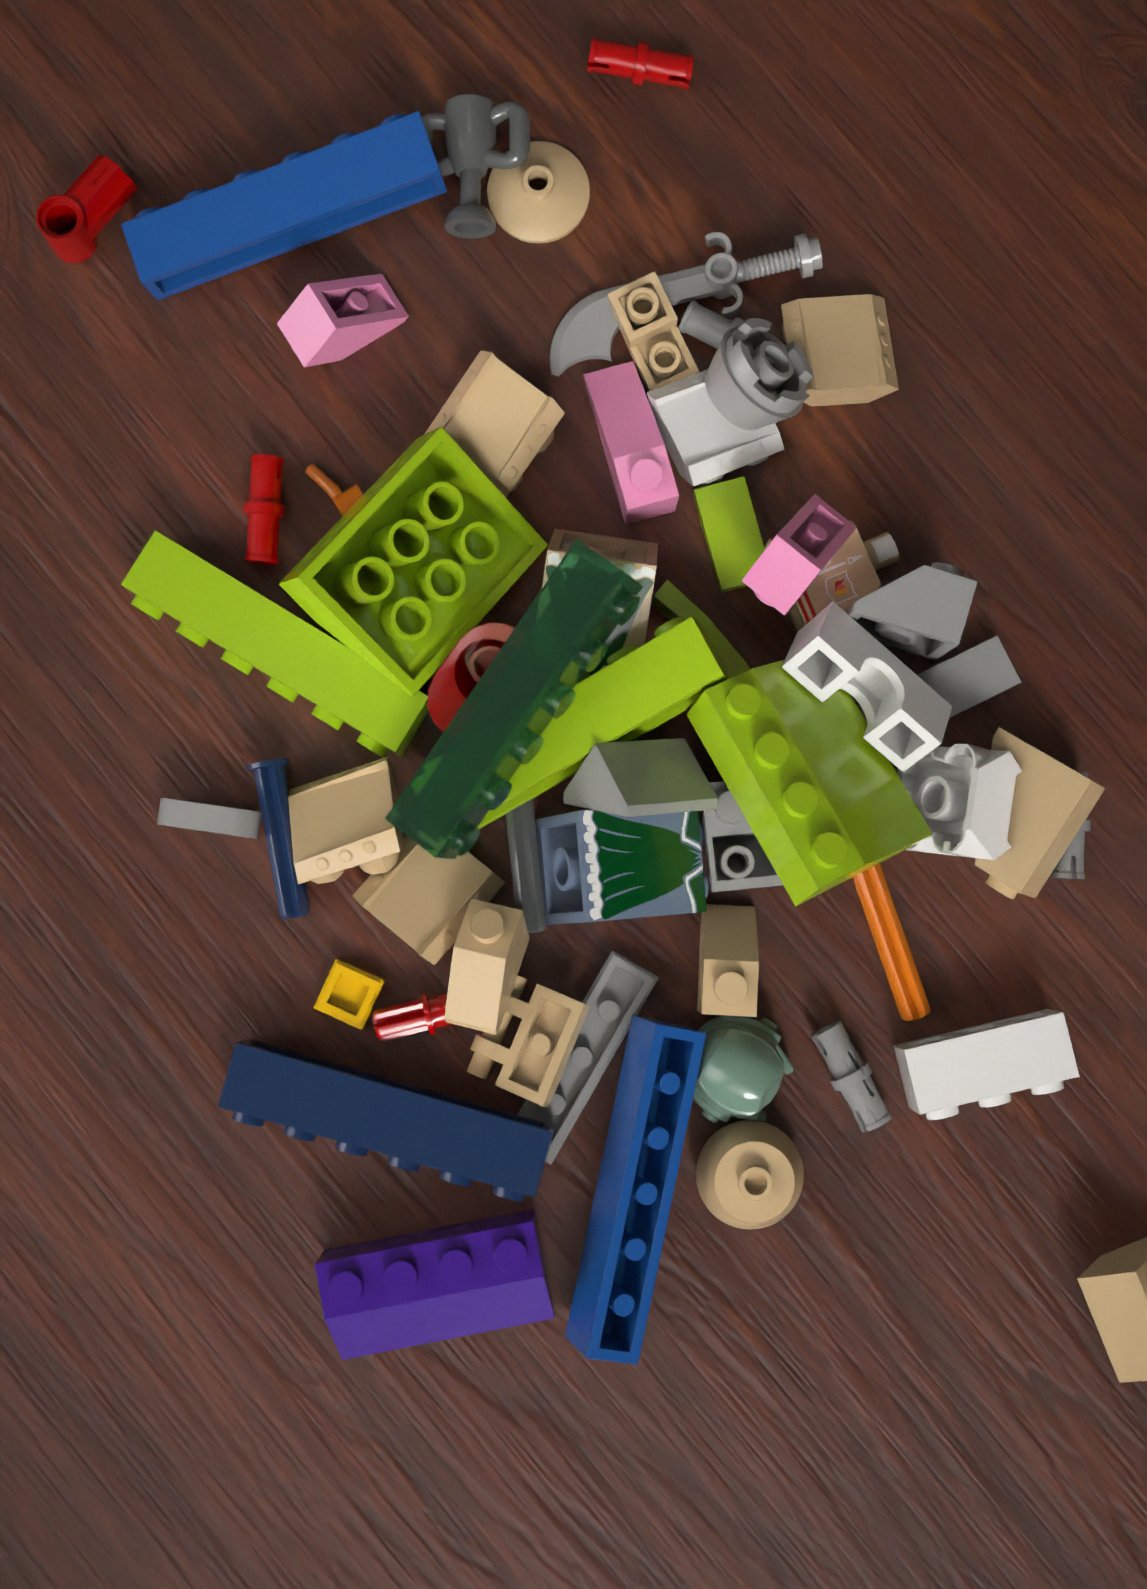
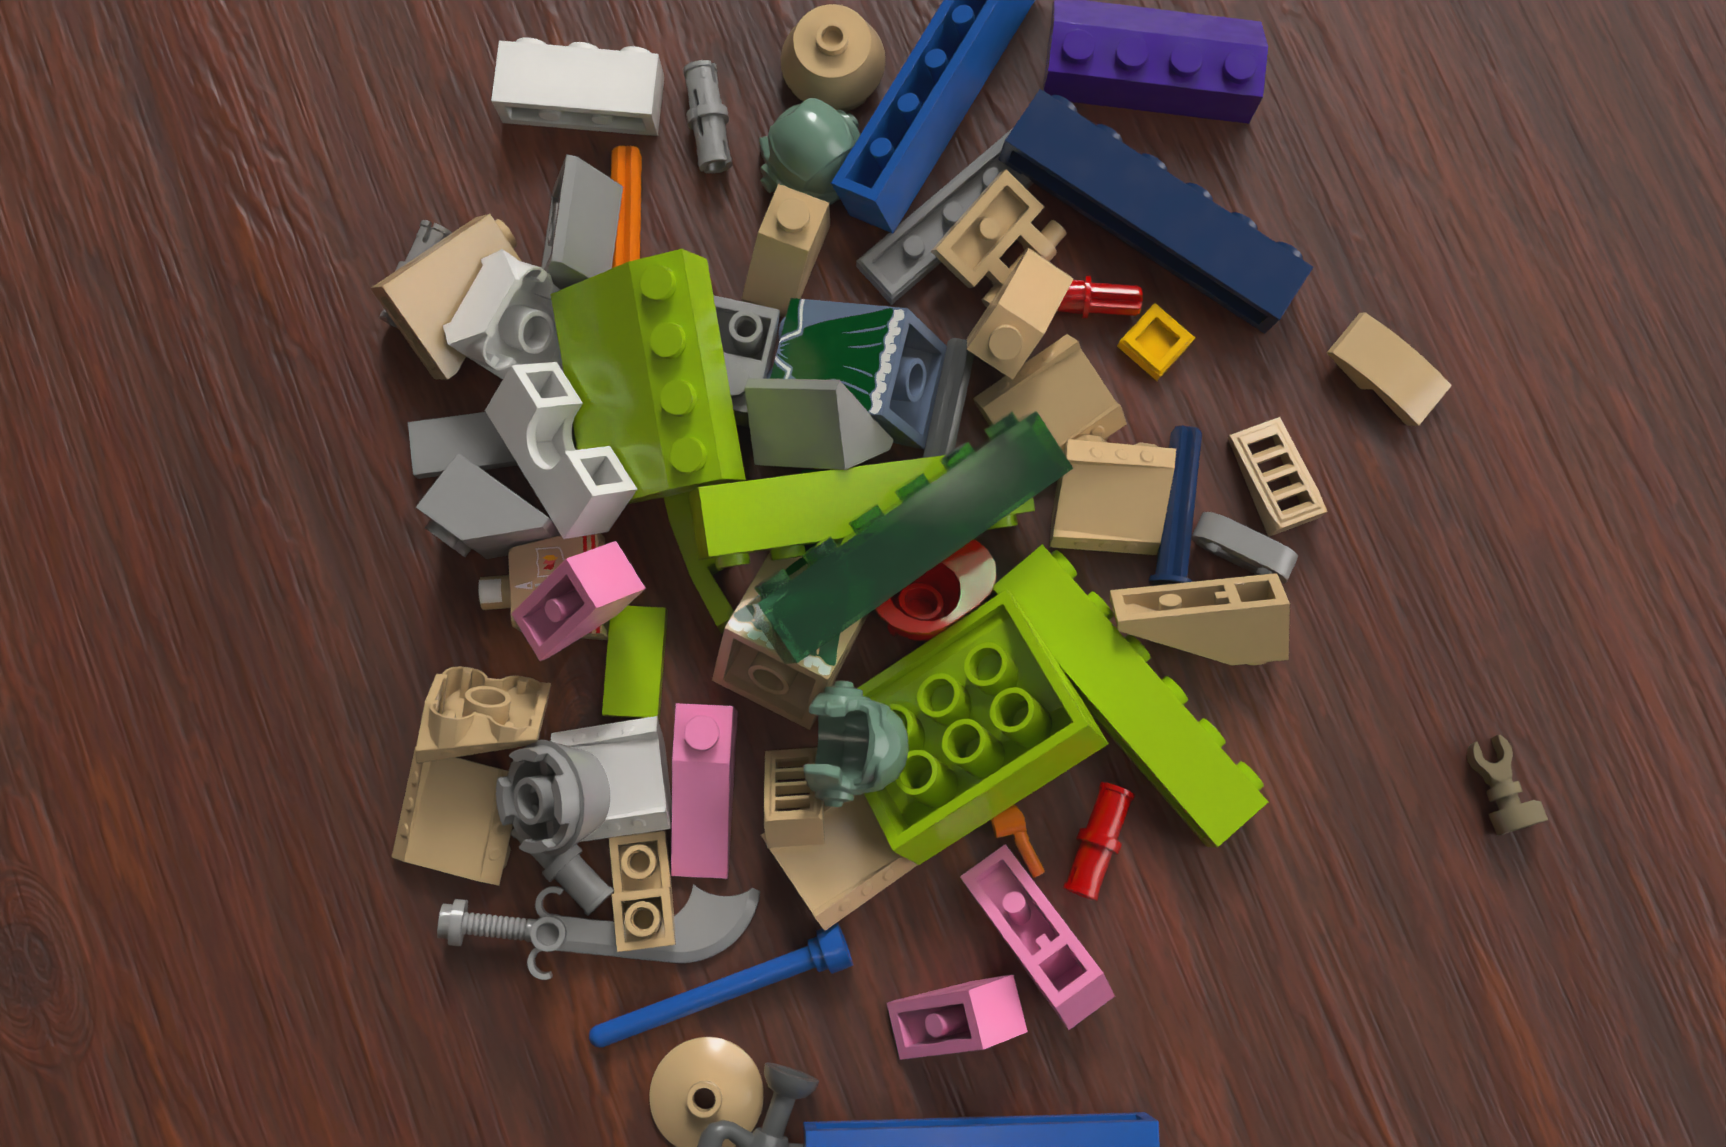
camera: 160 degrees left, 5 degrees down
(120, 1037) = (1389, 366): none -> tan slope
(183, 910) = (1303, 486): none -> tan slope
(223, 735) = (1217, 619): none -> tan slope
(294, 408) = (1038, 937): none -> bright pink slope
(478, 335) = (824, 952): none -> blue piece
(501, 503) = (858, 745): none -> sand green helmet
(534, 420) = (794, 826): none -> tan slope
(850, 435) = (479, 714): none -> tan slope
(928, 915) = (581, 223): none -> light grey slope

